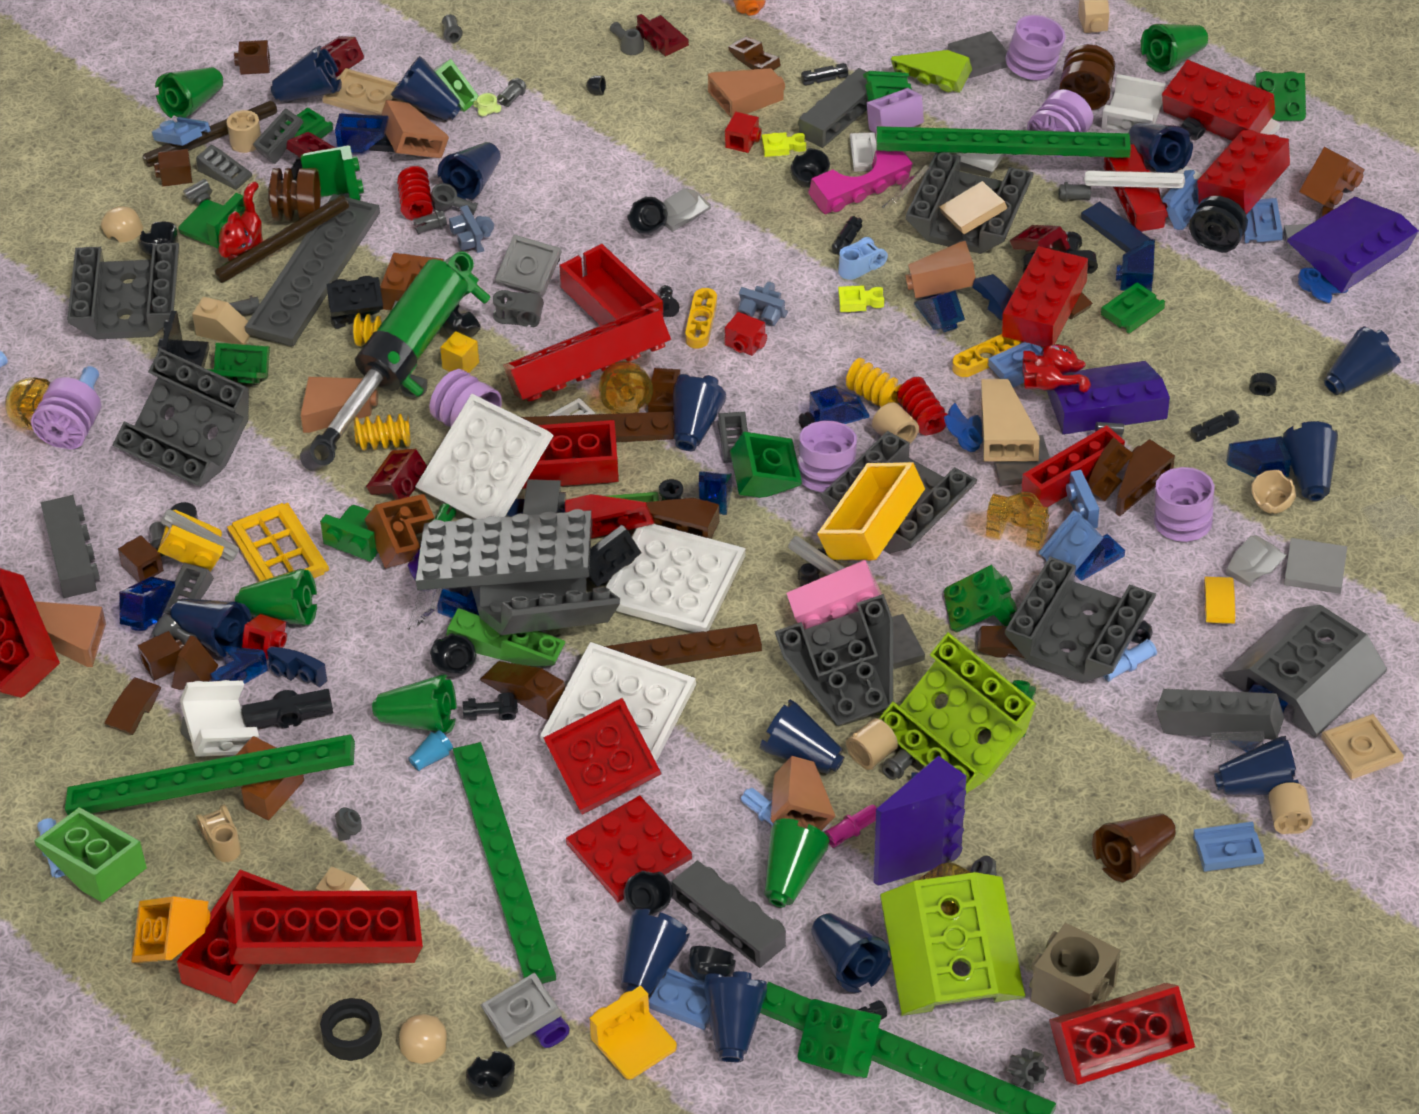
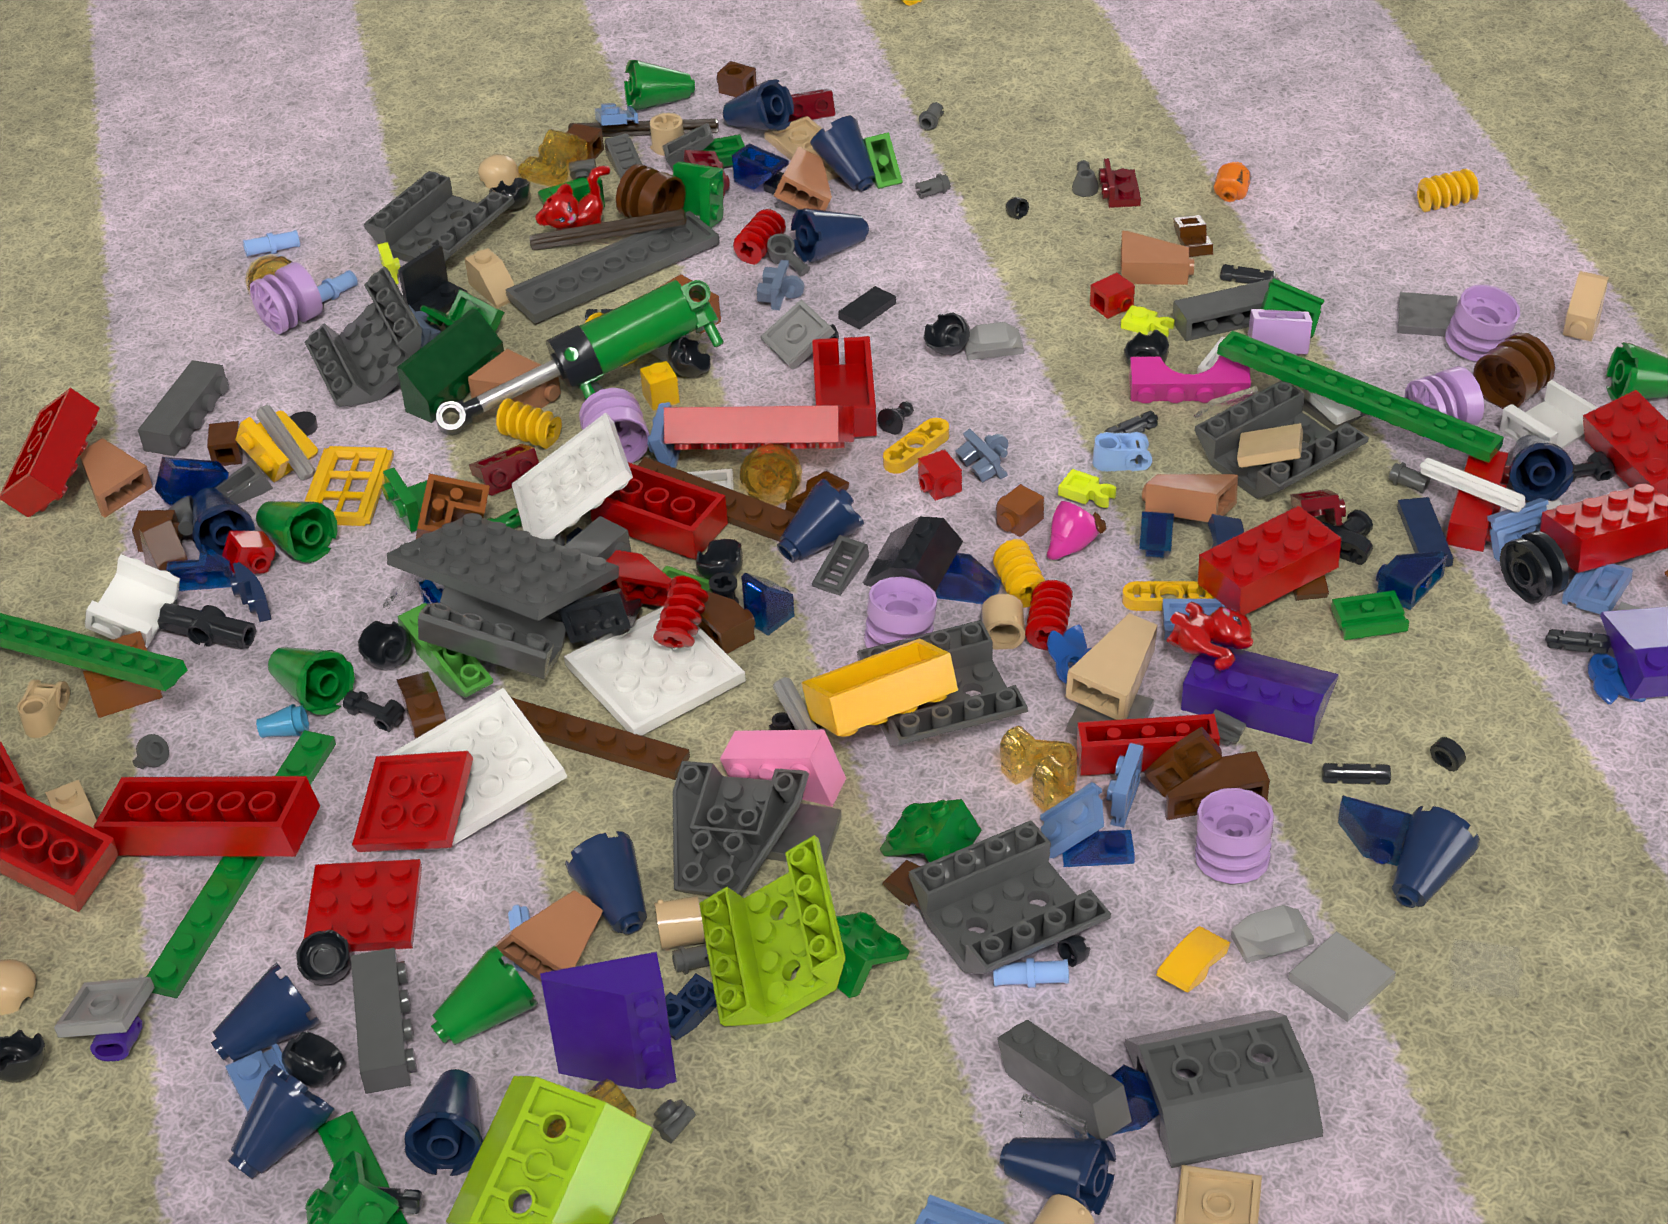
camera: 35 degrees right, 5 degrees down
(116, 347) = (388, 261): none -> neon yellow plate
(132, 703) = (91, 561): reddish brown slope -> none
(173, 186) = (554, 157): none -> clear yellow piece
(246, 306) = (522, 274): dark grey pin -> none
(277, 413) = (443, 365): none -> dark green slope
(354, 296) = (604, 294): black bracket -> none
(431, 221) = (751, 266): dark grey pin -> none
(466, 839) = (209, 815): none -> red brick
(487, 104) = (901, 188): yellowish green plate -> none
(511, 398) = (664, 452): none -> medium blue plate
(519, 309) = (753, 367): dark grey piece -> none
(555, 219) = (867, 307): none -> black tile
(631, 1034) = (175, 1088): yellow bracket -> none
(645, 472) = (721, 556): none -> black hair
(671, 524) = (681, 613): none -> red piece
(764, 465) = (835, 602): green slope -> none
(796, 402) = (917, 551): none -> black slope
(828, 336) = (1020, 510): none -> dark orange brick
(882, 333) = (1072, 530): none -> dark pink hat
(940, 68) = (1366, 308): lime slope -> none
(1132, 844) = (849, 1172): reddish brown cone -> none
(1273, 491) = (1355, 870): tan hair -> none
(1282, 266) = (1578, 641): none -> black axle
(1361, 361) = (1581, 778): dark blue cone -> none

